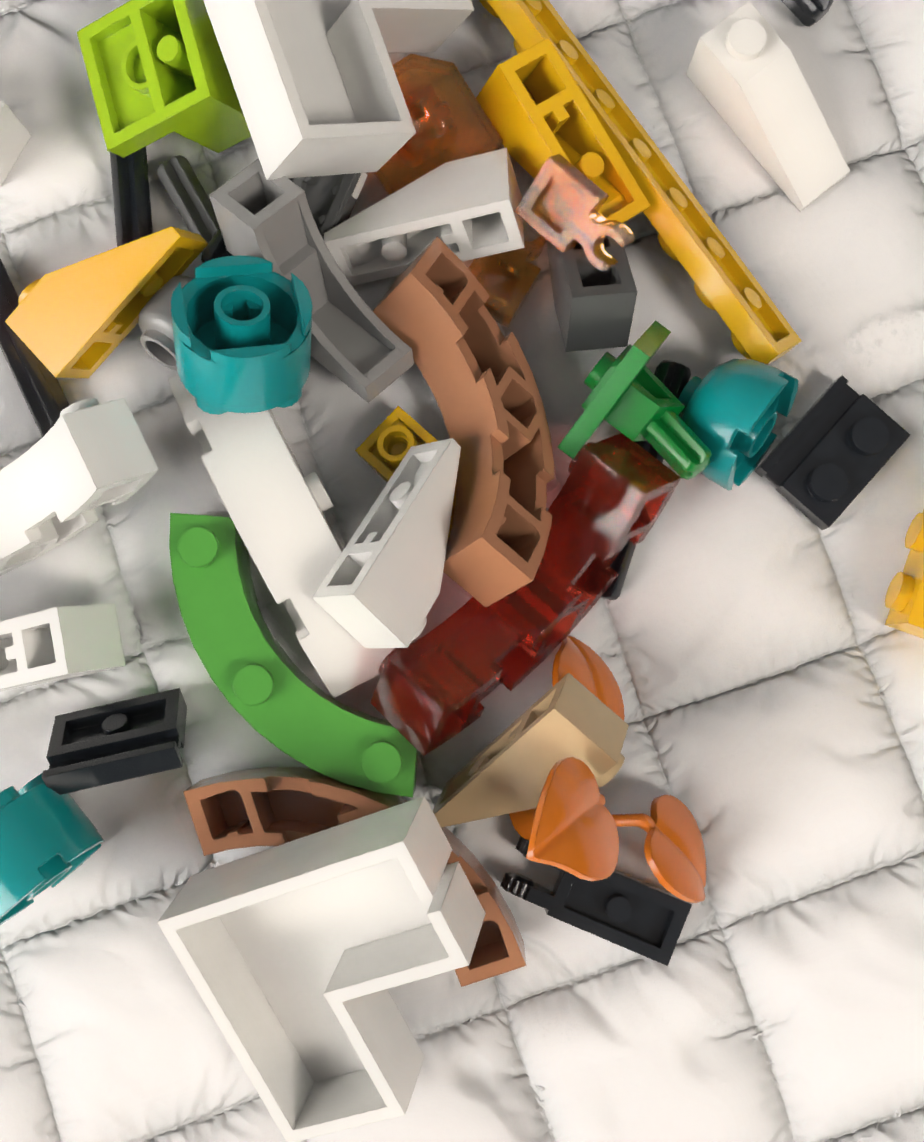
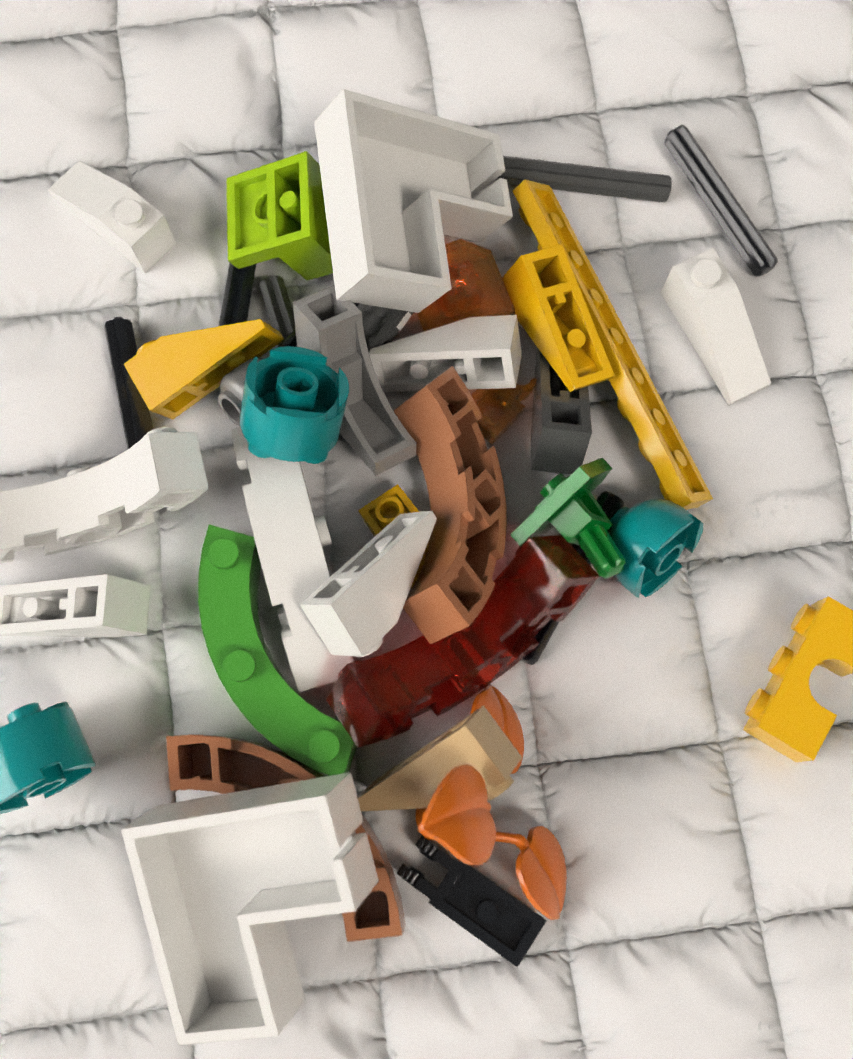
camera: 15 degrees right, 10 degrees down
(116, 742) = (124, 691): black plate -> none
(565, 210) = (550, 366): clear orange plate -> none
(832, 453) = (722, 587): black plate -> none

